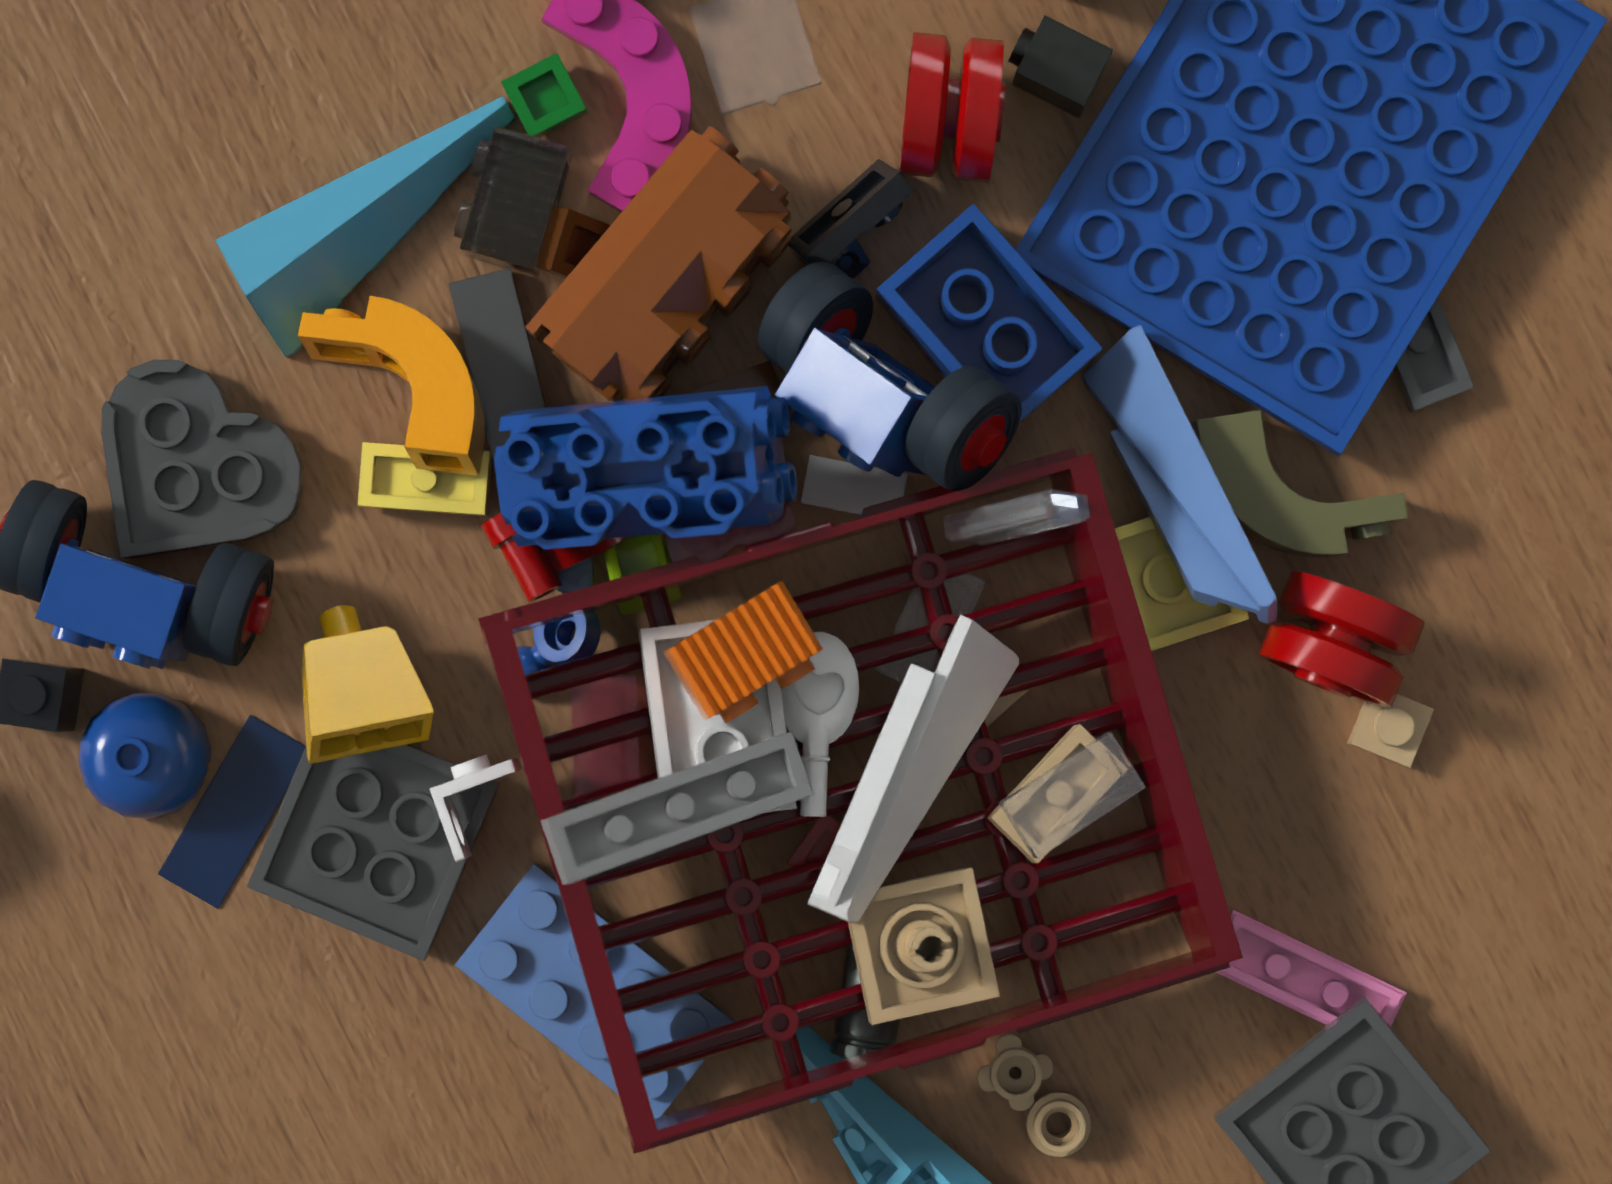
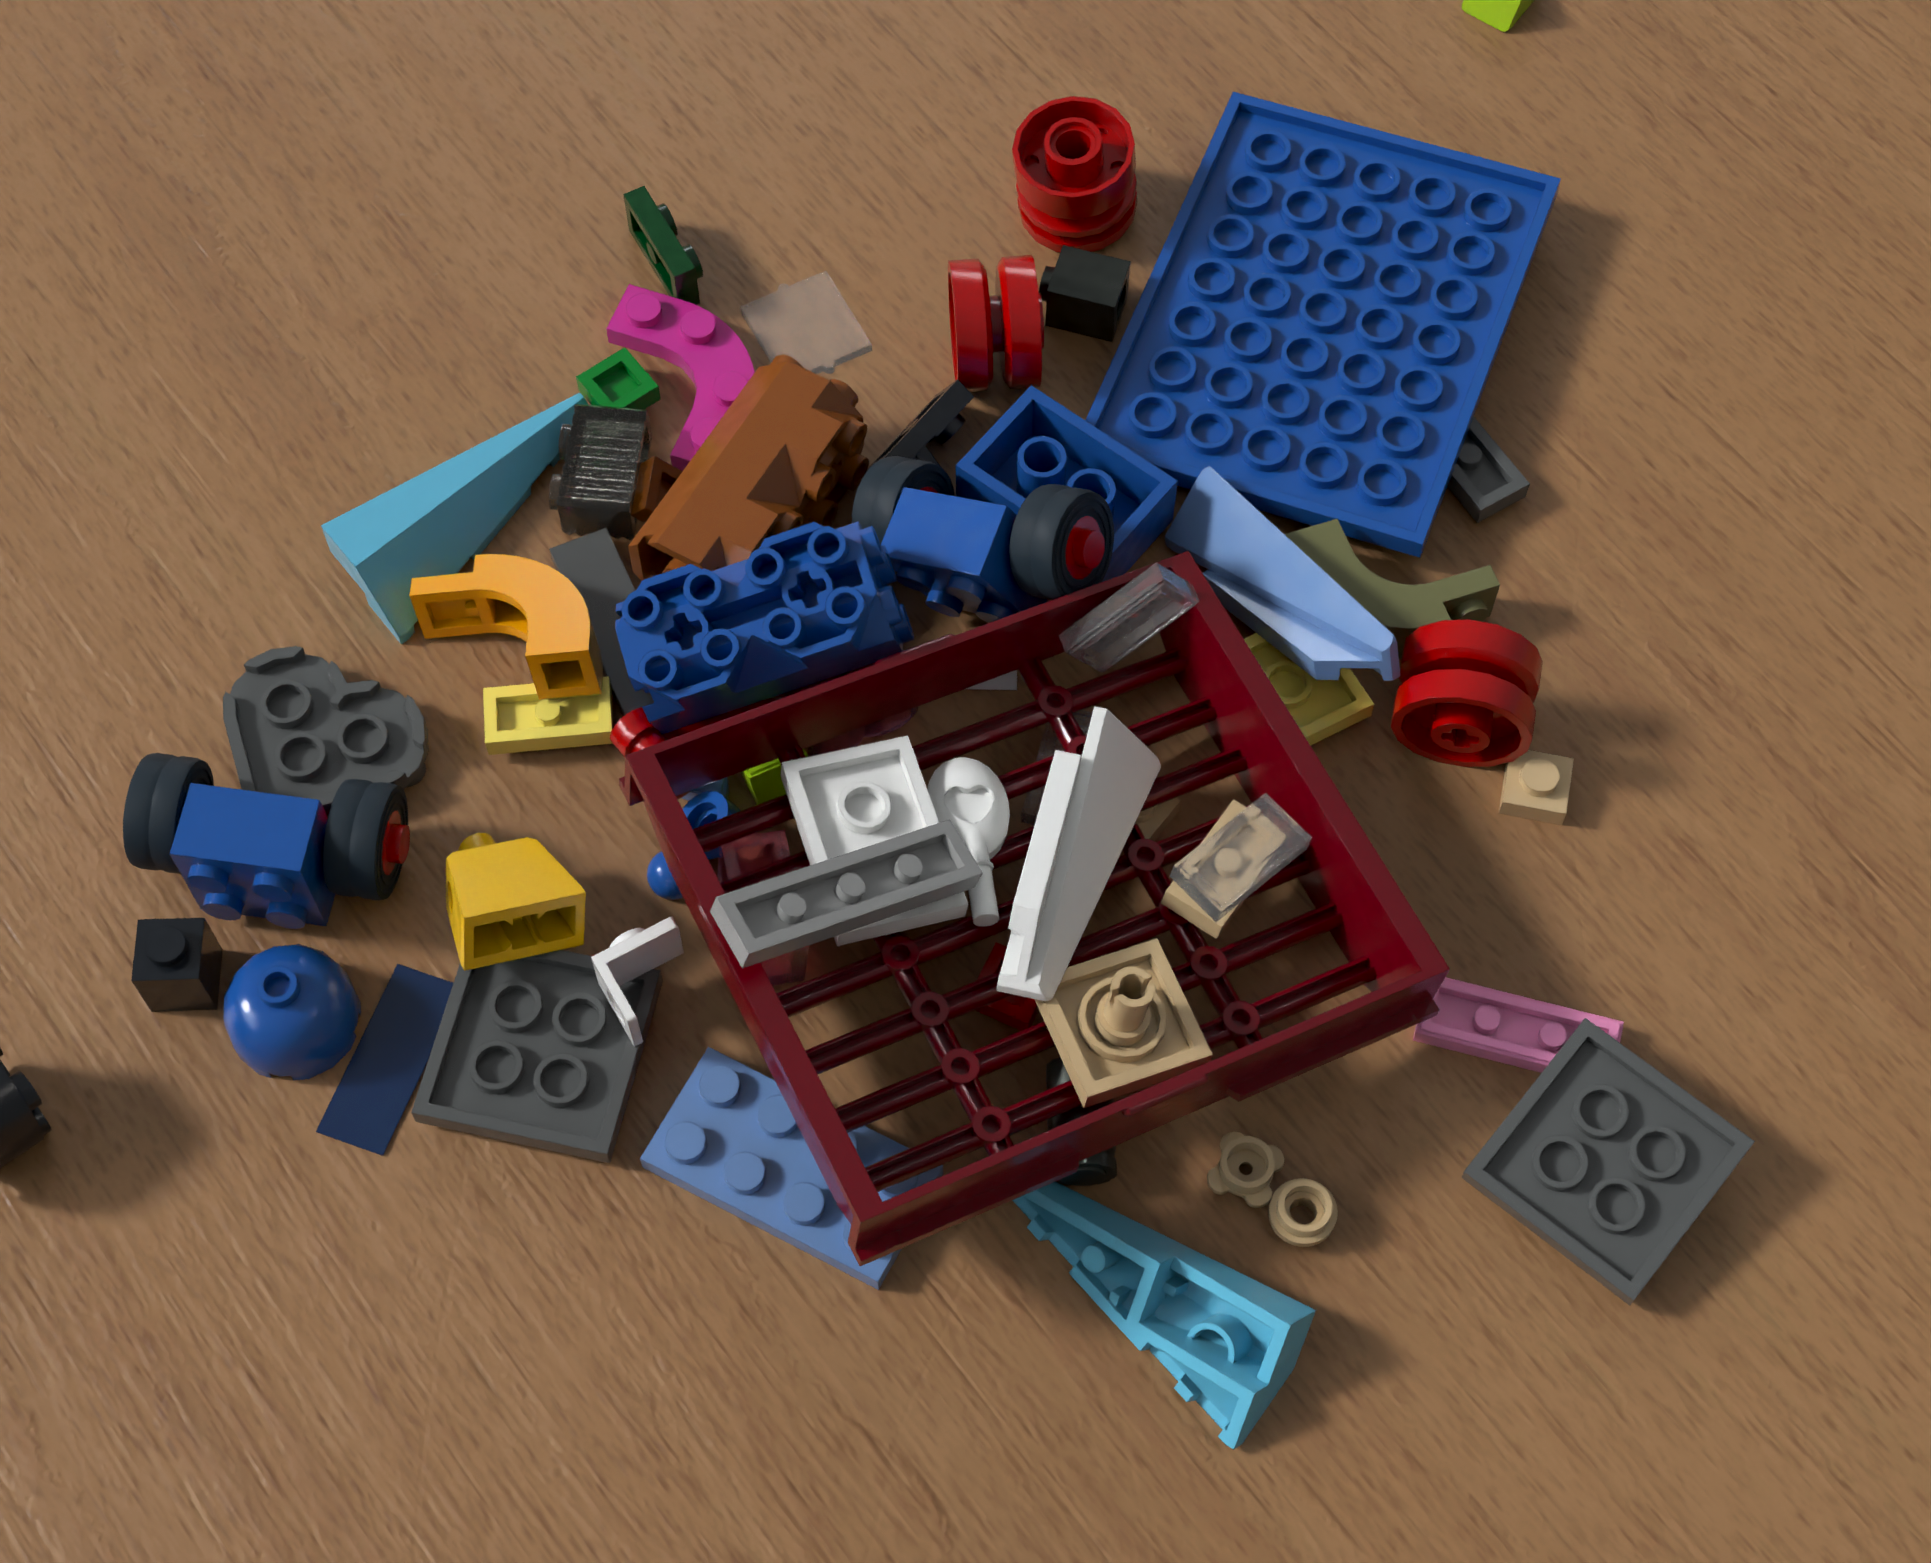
camera: 15 degrees left, 25 degrees down
(743, 653) = (887, 757): orange brick -> none

